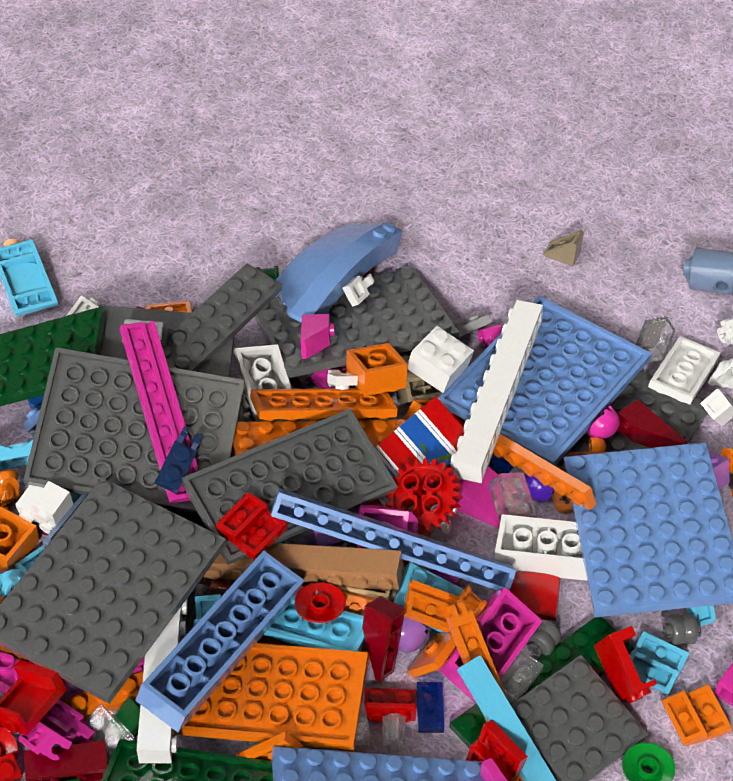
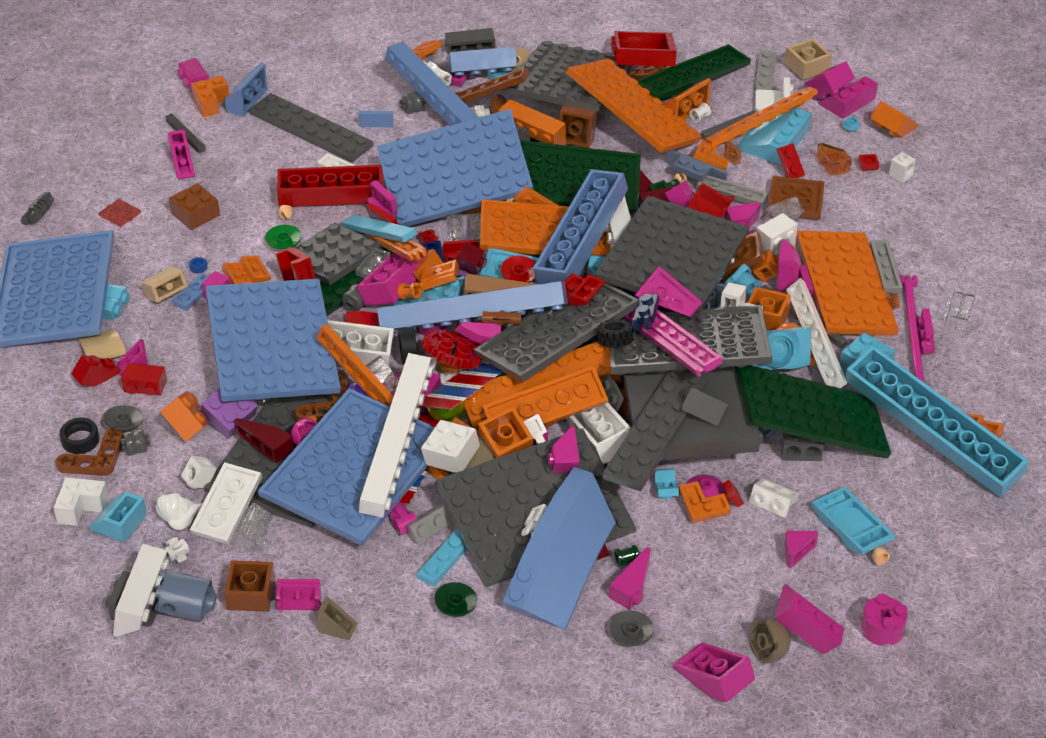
camera: 175 degrees right, 5 degrees down
(41, 184) = (884, 620): none -> dark pink brick
(90, 262) = (799, 544): none -> dark pink slope
(114, 177) = (808, 621): none -> dark pink slope
(135, 486) = (671, 293): none -> dark pink wing
(154, 178) = (772, 636): none -> dark tan cylinder
(215, 166) = (716, 671): none -> dark pink slope
(220, 426) = (615, 333): none -> black tyre
(271, 247) = (629, 585): none -> dark pink slope
(282, 209) = (629, 622): none -> dark grey dish
(359, 505) = (501, 317): none -> dark orange pin
(439, 741) = (427, 236): none -> red plate
(446, 253) = (454, 593): none -> dark green dish
(460, 296) = (442, 560): none -> medium azure plate
(477, 536) = (407, 343): none -> black tyre
(601, 281) = (298, 594): none -> dark pink hinge
(651, 282) = (249, 585): none -> dark orange brick

